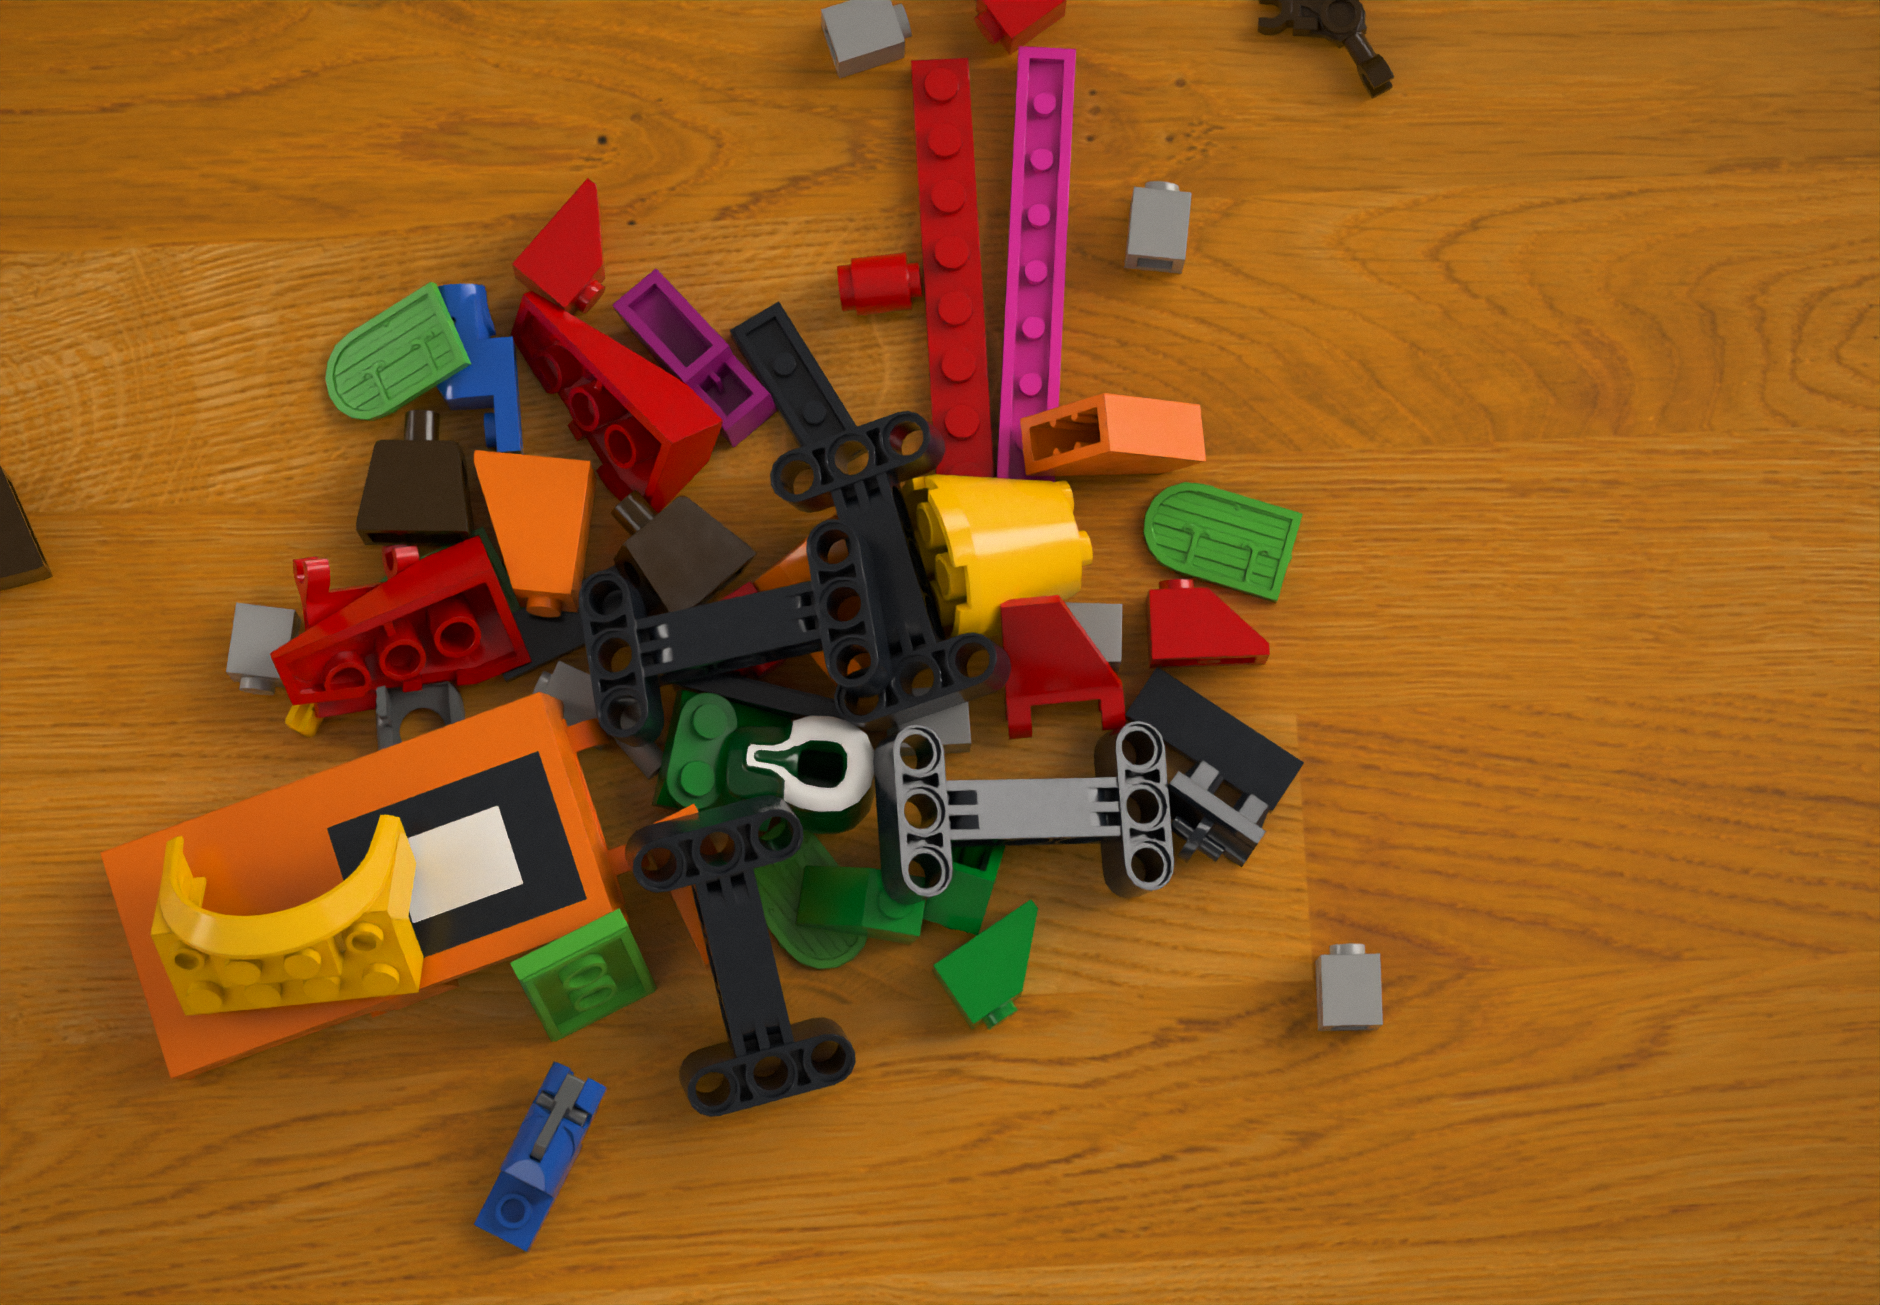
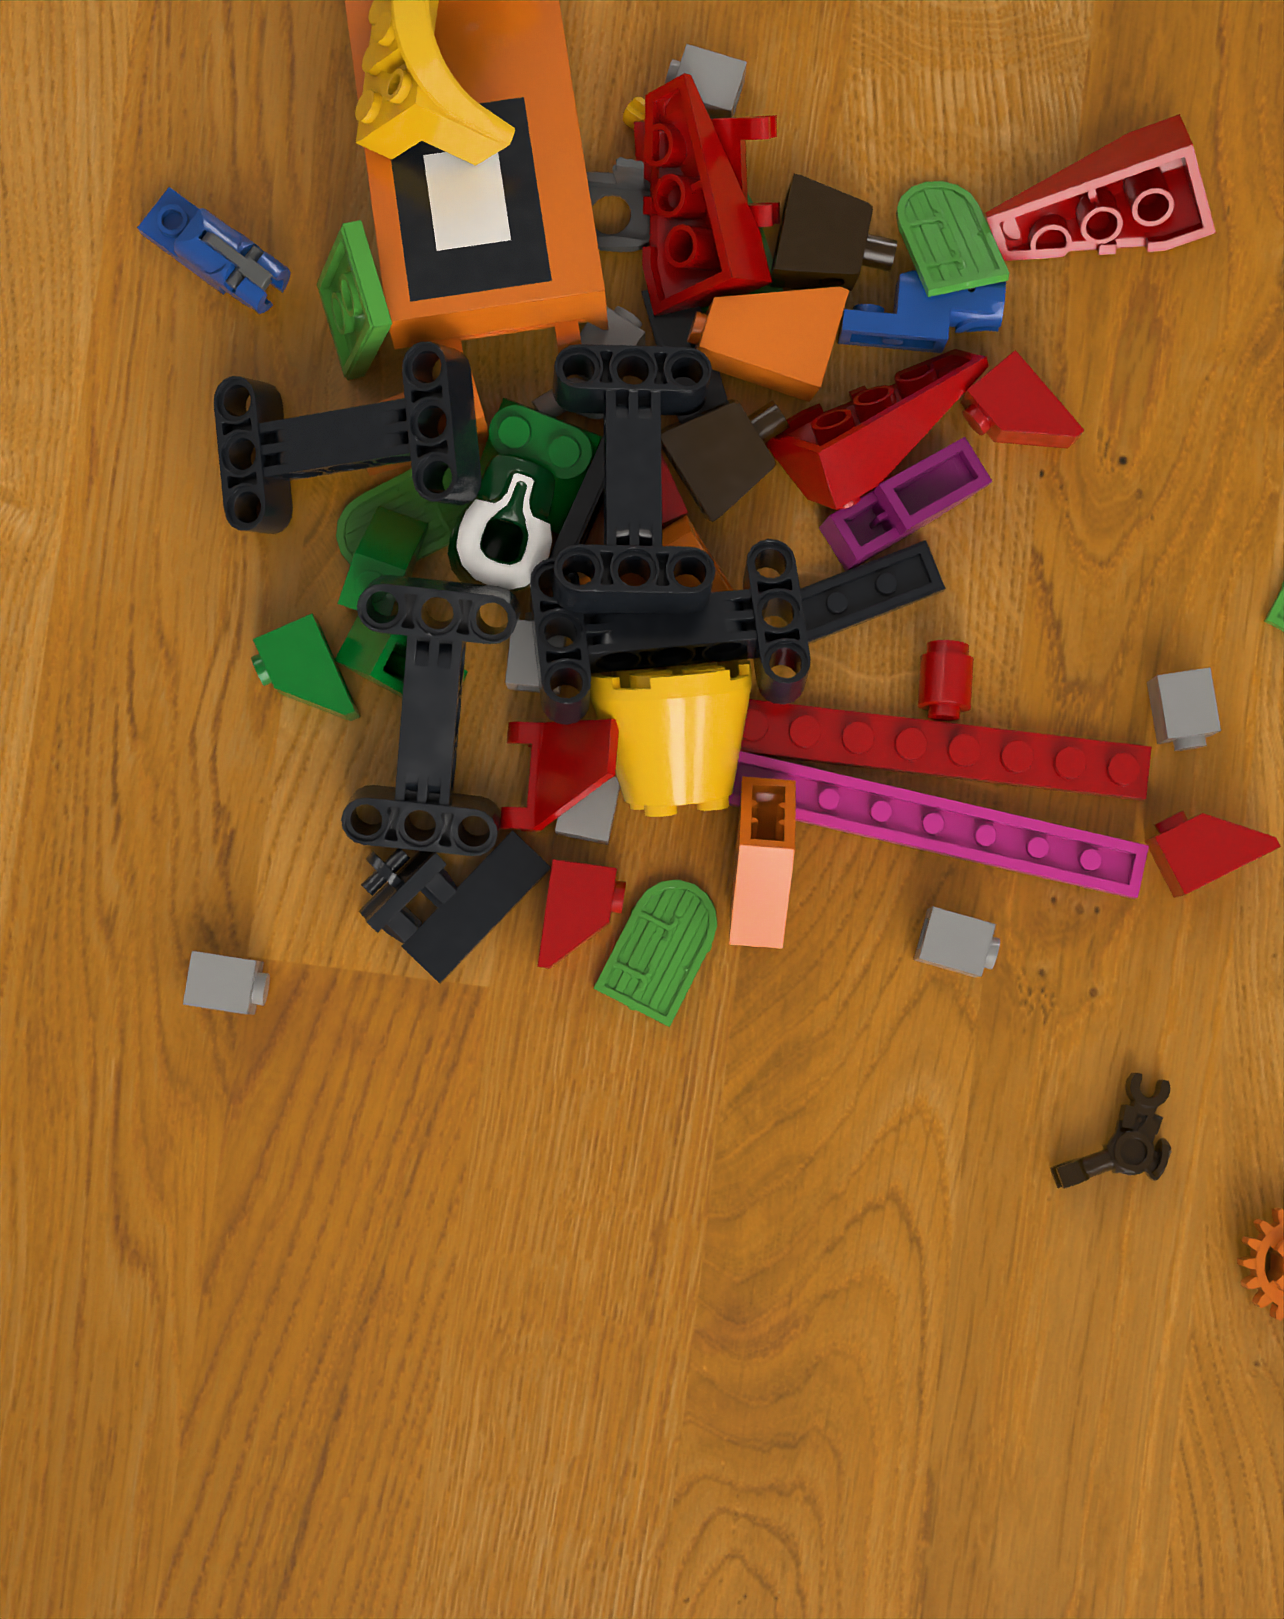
camera: 105 degrees right, 5 degrees up
(312, 179) = (1120, 196): none -> red wedge

